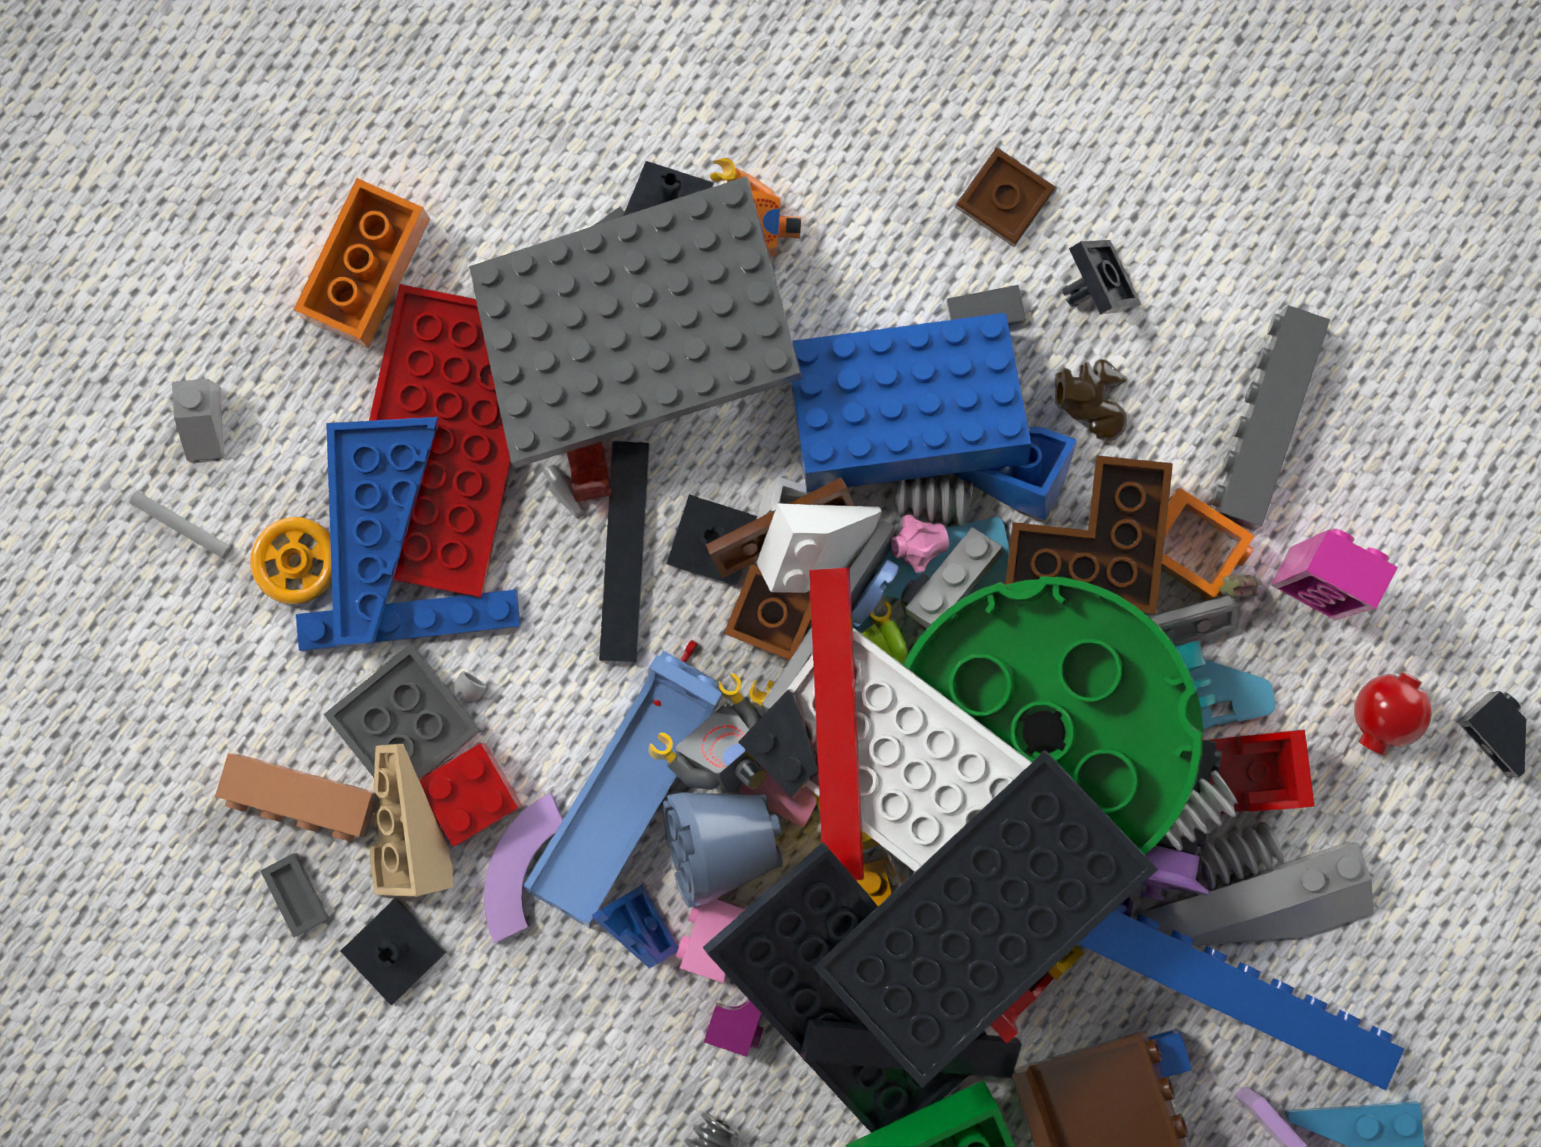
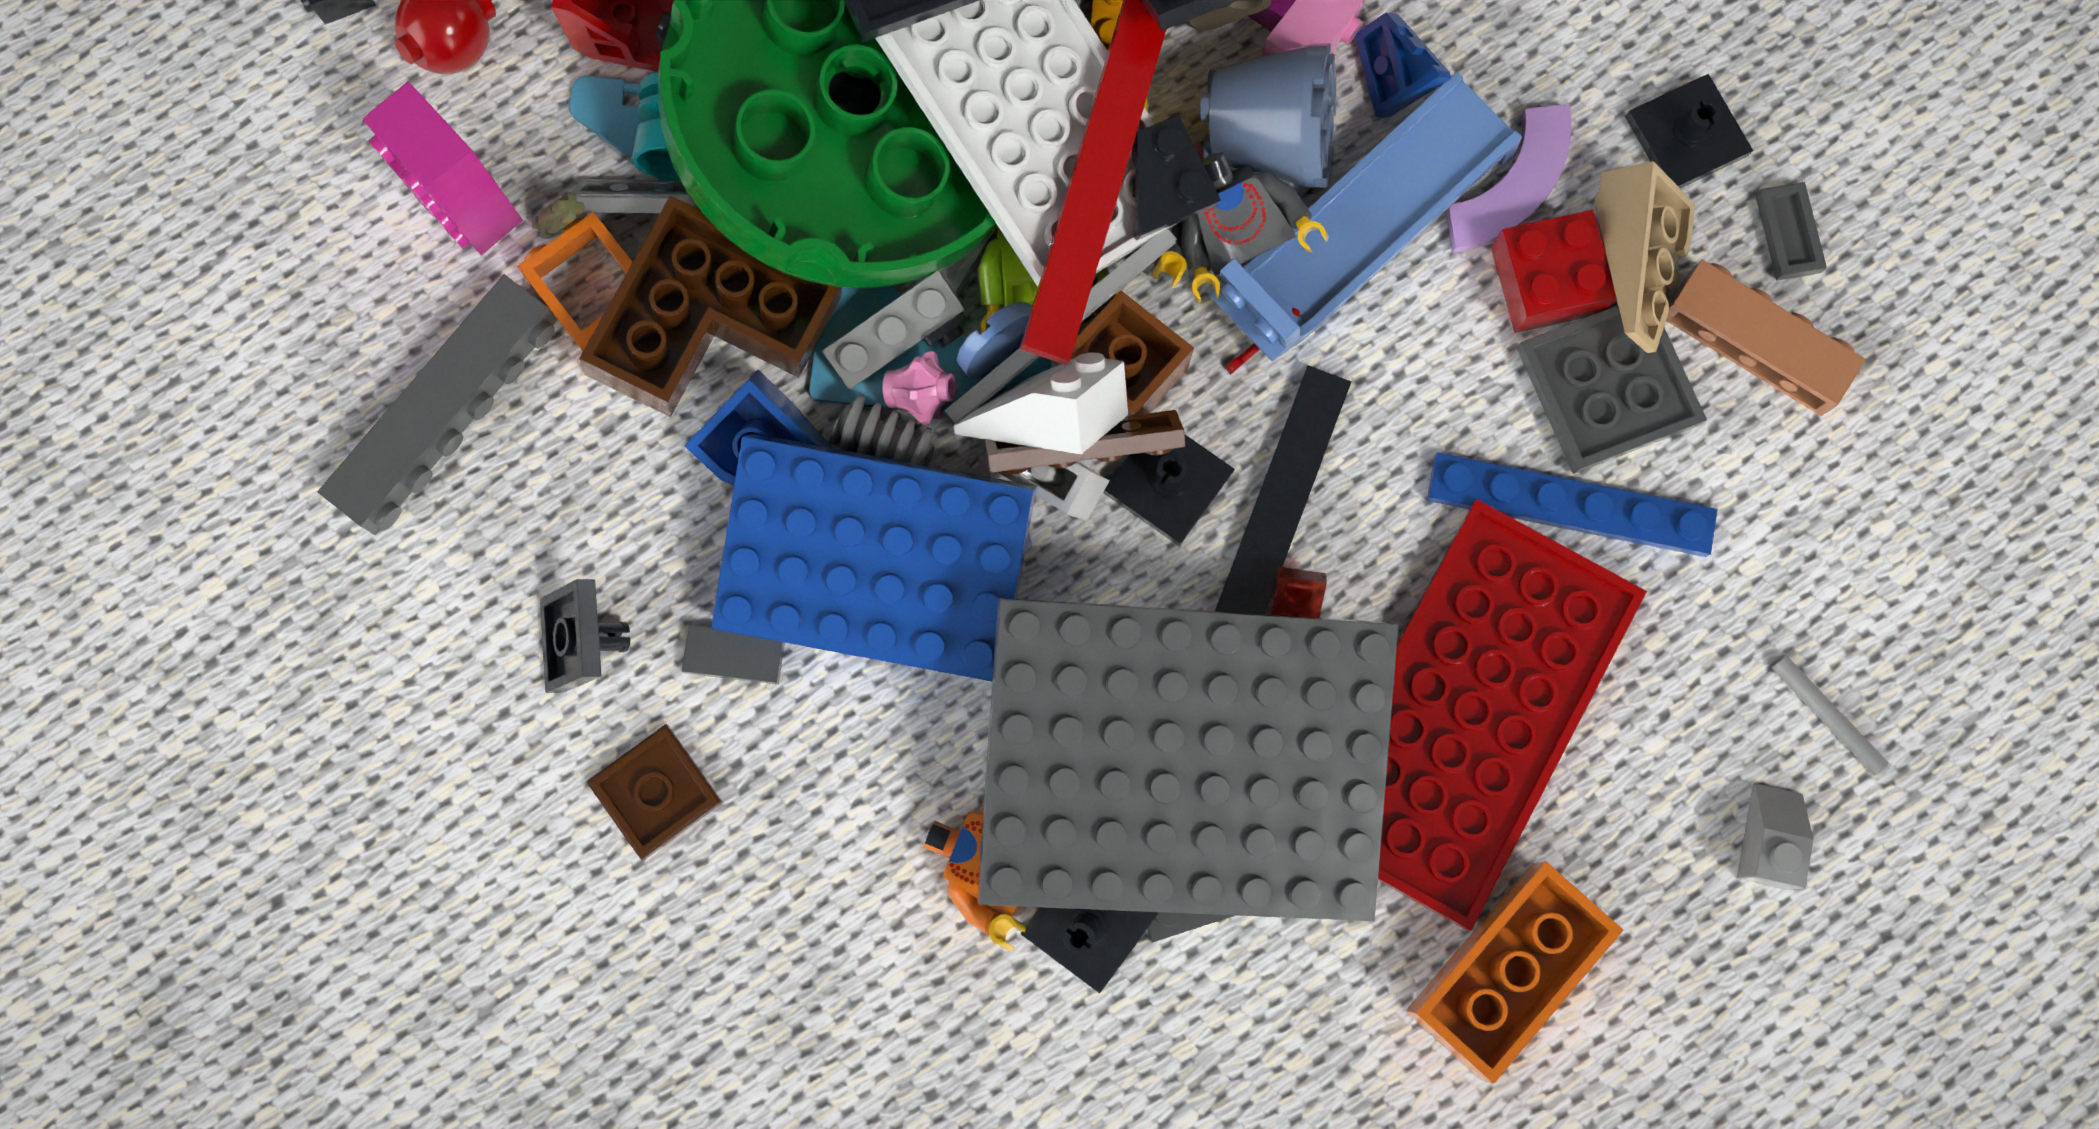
camera: 165 degrees left, 5 degrees down
(264, 551) = (1725, 597): light orange plate -> none
(372, 495) = (1582, 658): blue wing -> none
(468, 685) = (1522, 397): light grey hinge -> none
(561, 488) = (1335, 601): light grey bar -> none
(1085, 398) = (653, 502): dark brown animal -> none

